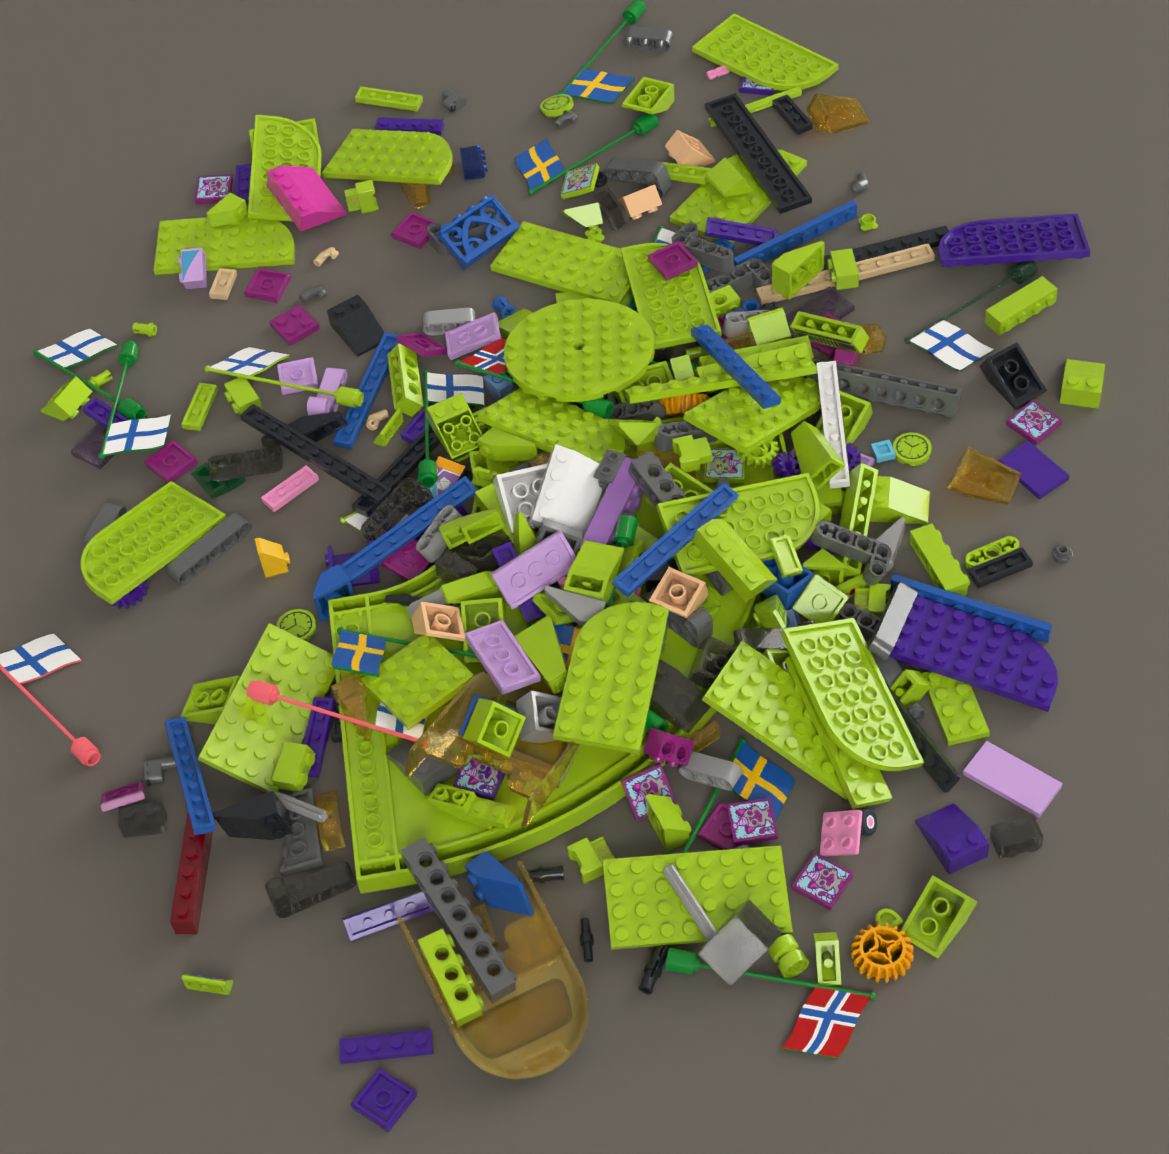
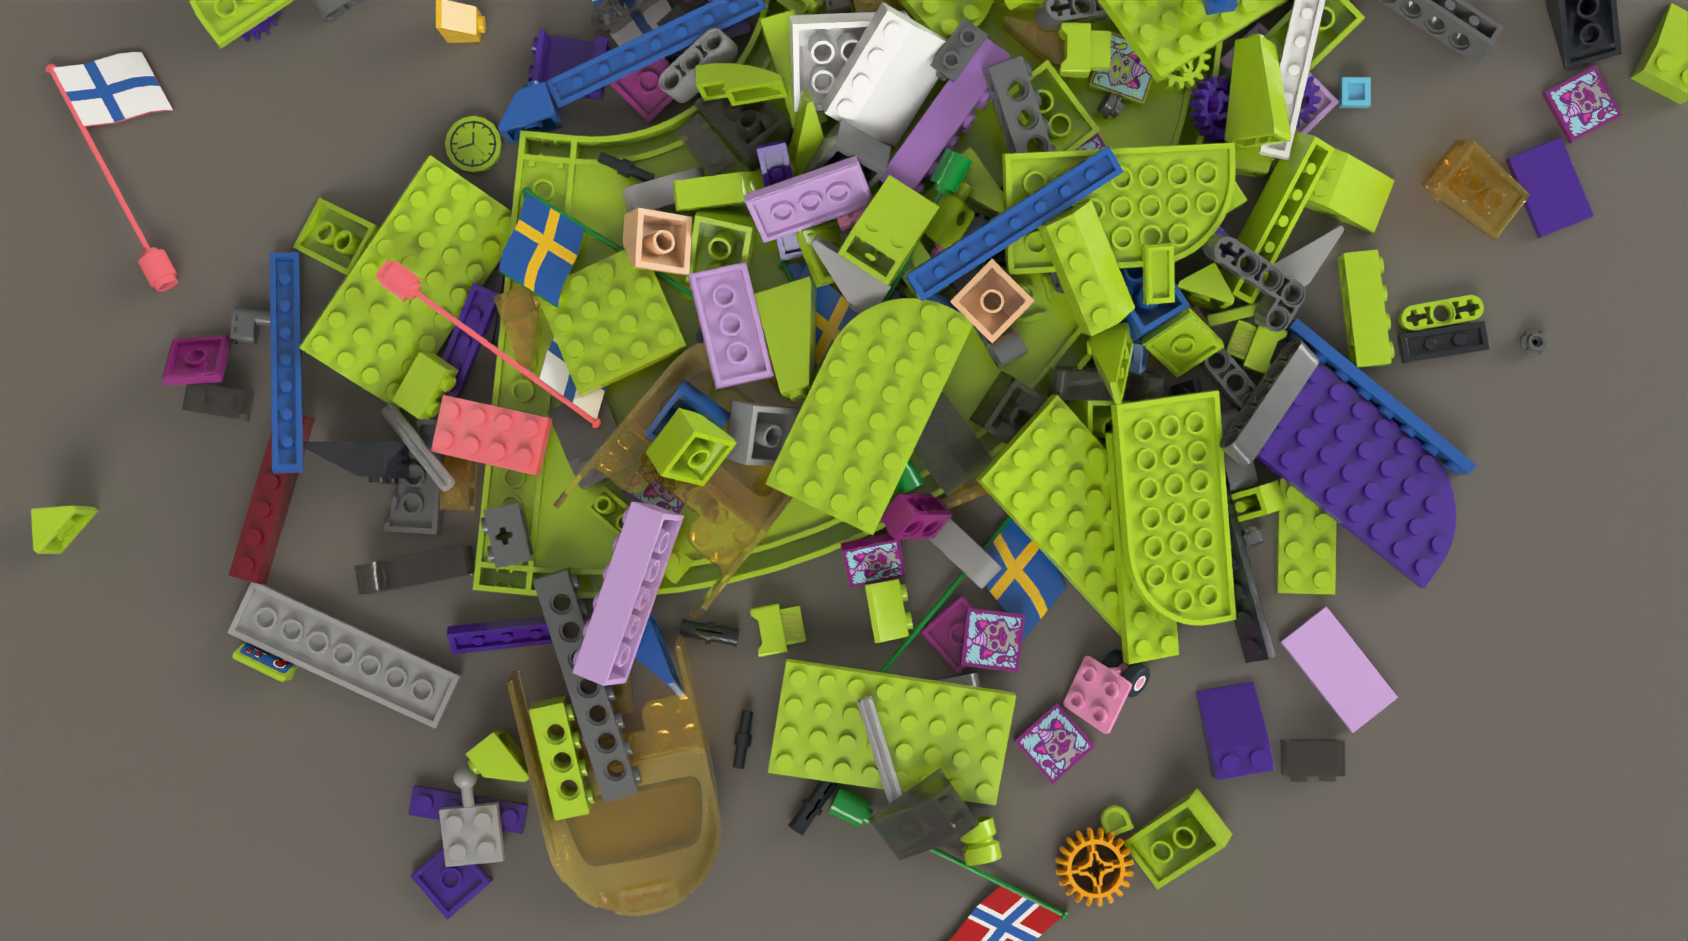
camera: 15 degrees right, 35 degrees up
(37, 922) = (58, 526): none -> lime slope
(268, 961) = (344, 654): none -> light grey plate
(348, 777) = (491, 435): none -> coral plate
(376, 833) = (513, 519): none -> dark grey brick
(392, 1052) = (471, 830): none -> light grey plate
(404, 993) = (498, 758): none -> lime slope
(472, 829) = (627, 593): none -> lavender brick
(827, 958) = (1026, 854): lime slope -> none
(912, 449) = (1397, 98): lime tile -> none

